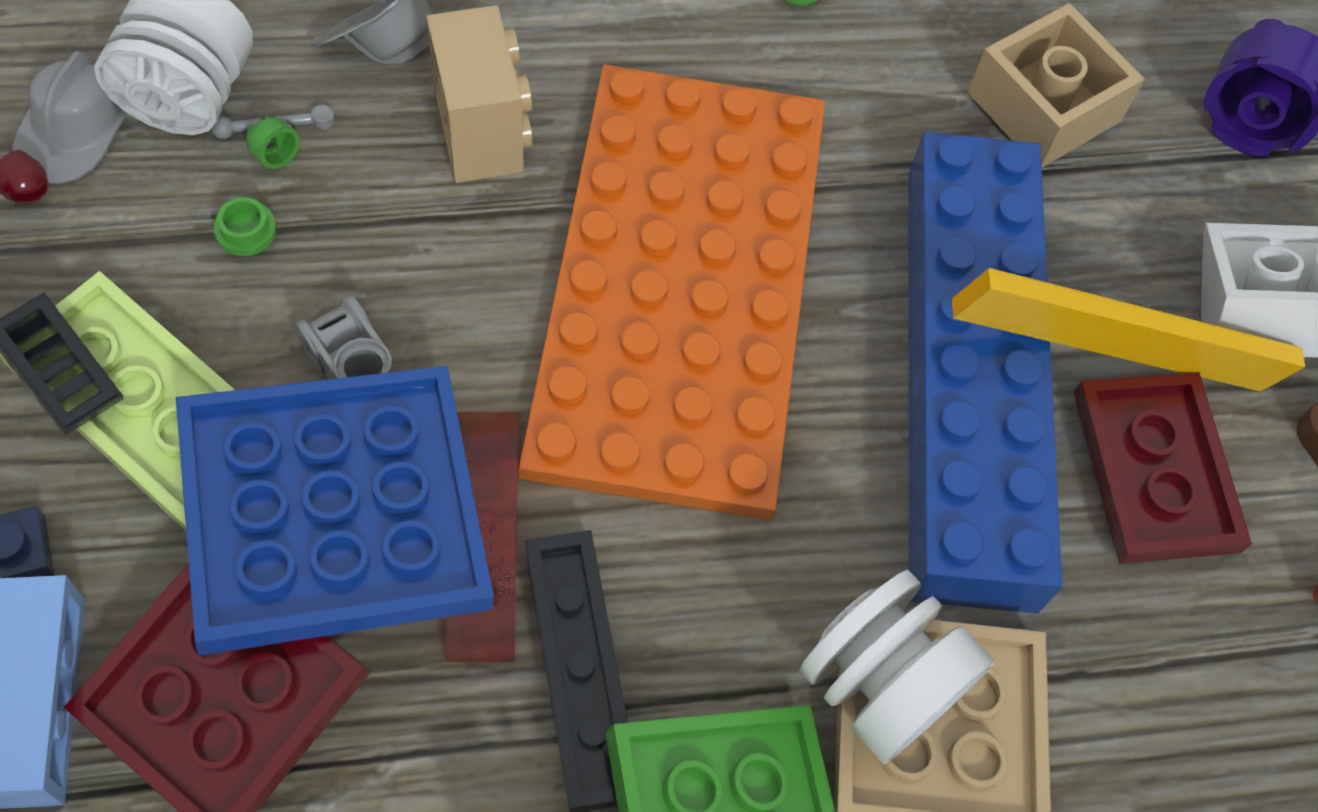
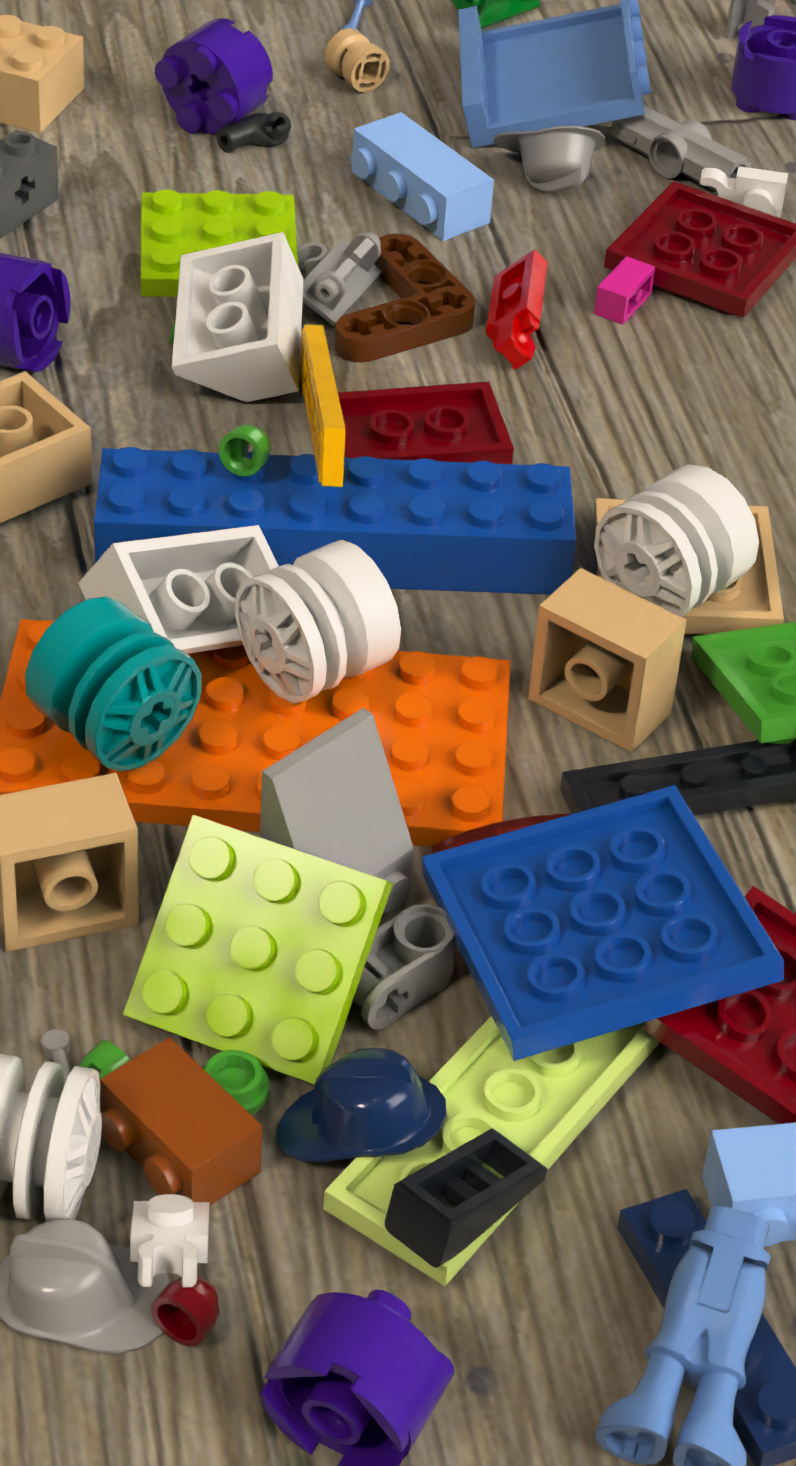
camera: 90 degrees left, 20 degrees down
(86, 165) = (169, 1237): none -> white plate
(176, 311) = (362, 1108): none -> dark blue piece
(192, 176) = (179, 1125): none -> dark orange brick
(346, 224) = (257, 949): none -> lime plate
(462, 285) = (341, 804): none -> light grey slope
(665, 116) = (113, 683): none -> teal wheel
(738, 583) = (606, 659): none -> tan brick
(752, 286) = (317, 621): none -> white wheel
(814, 210) = (183, 582): none -> white slope
(1022, 244) = (235, 447): none -> bright green hinge

